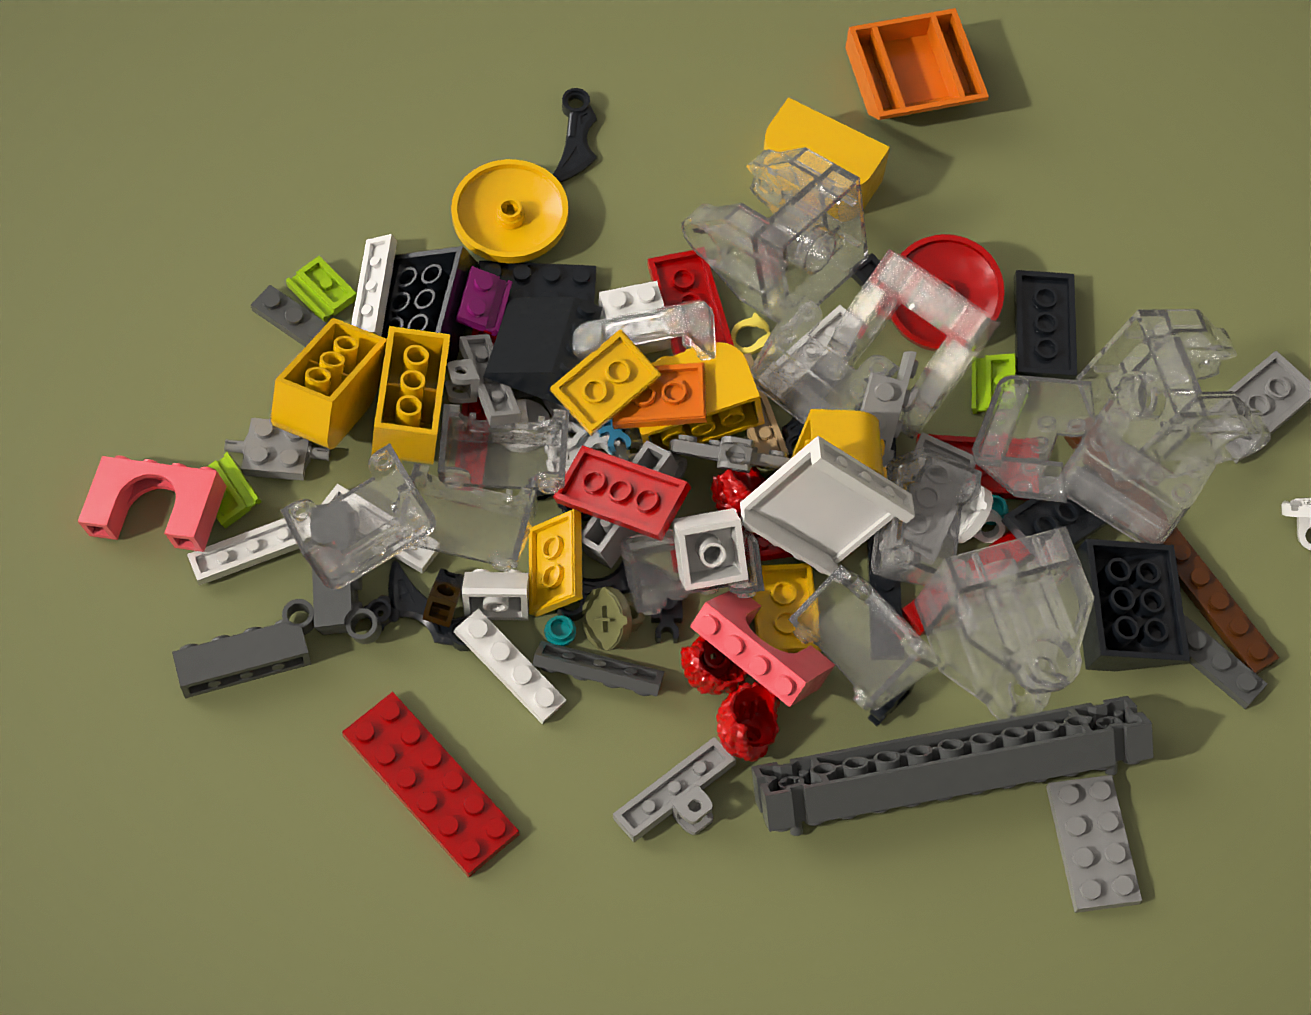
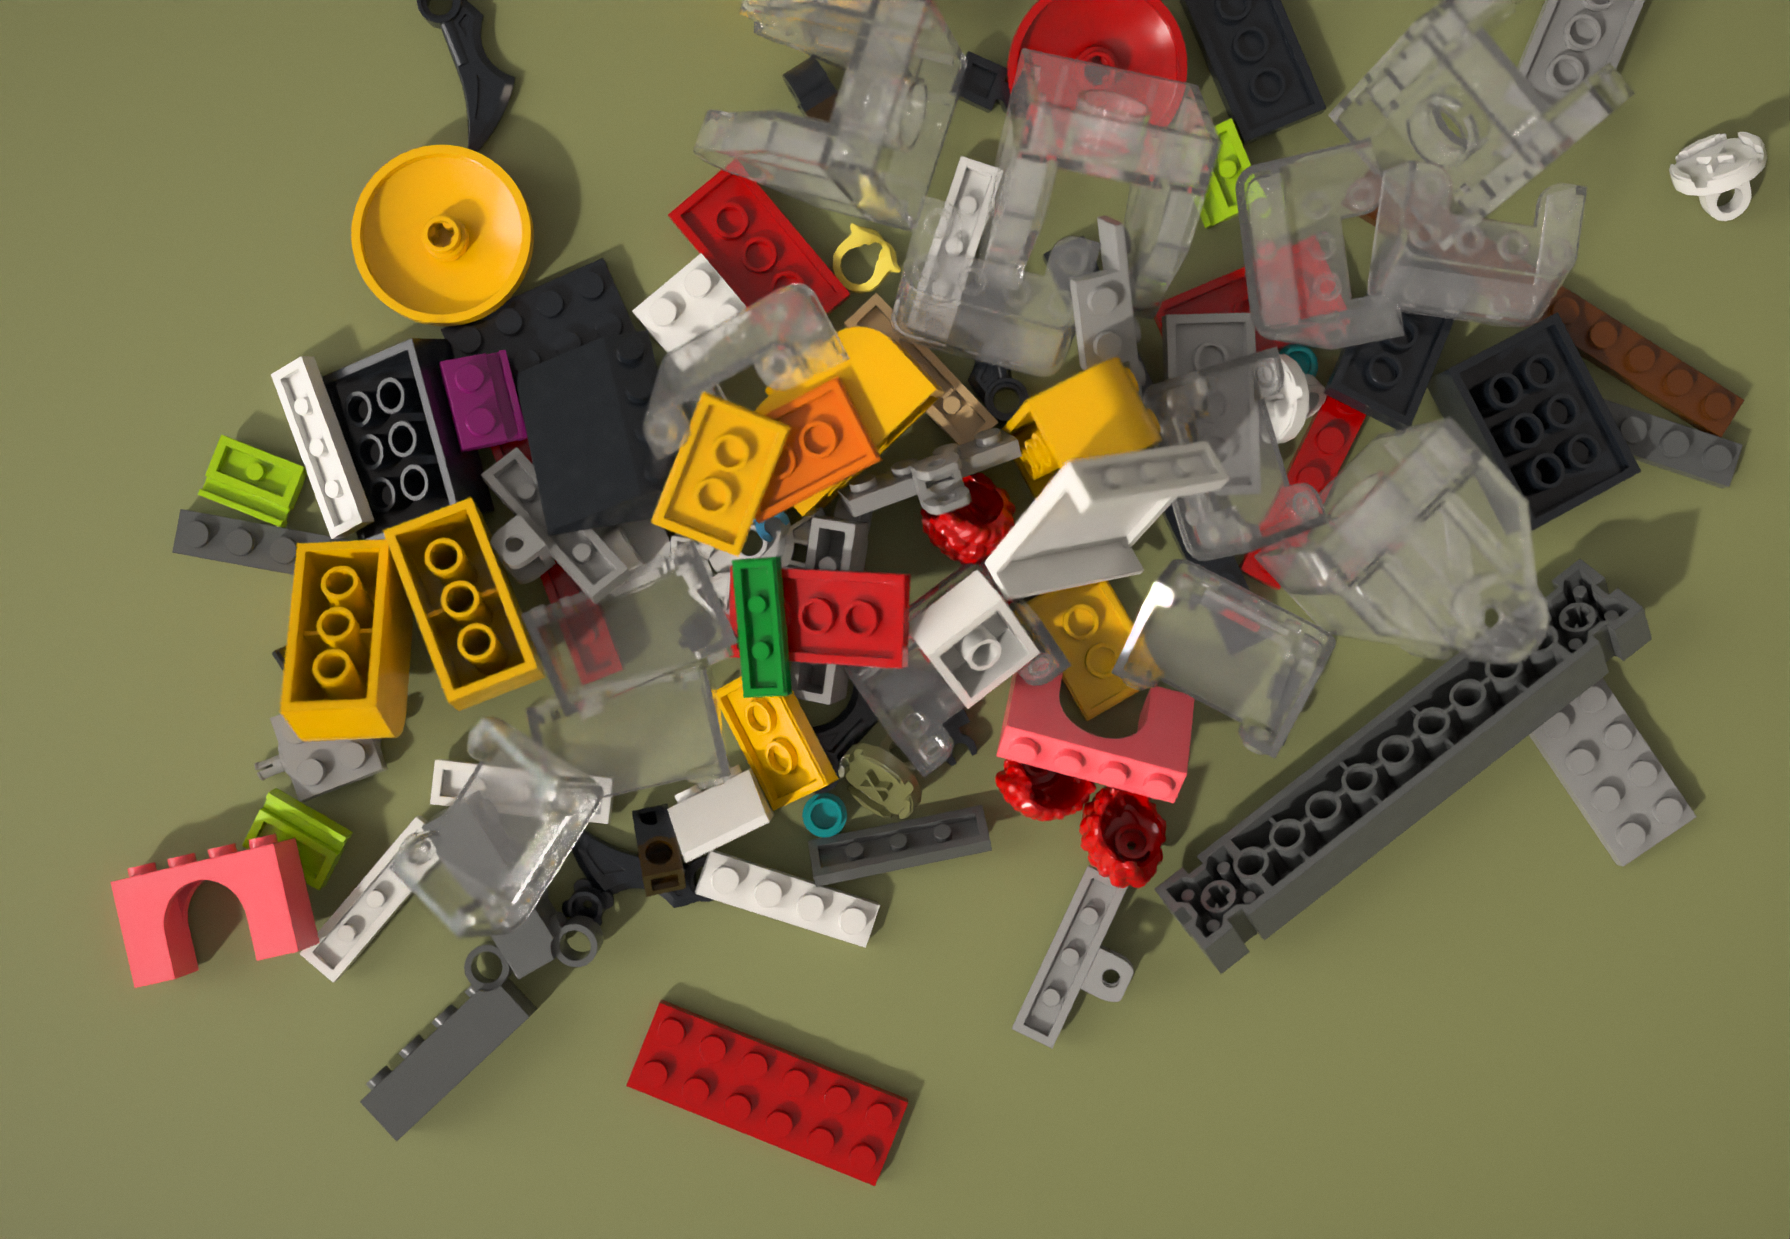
camera: 25 degrees left, 25 degrees up
(583, 484) = (761, 627): none -> green tile

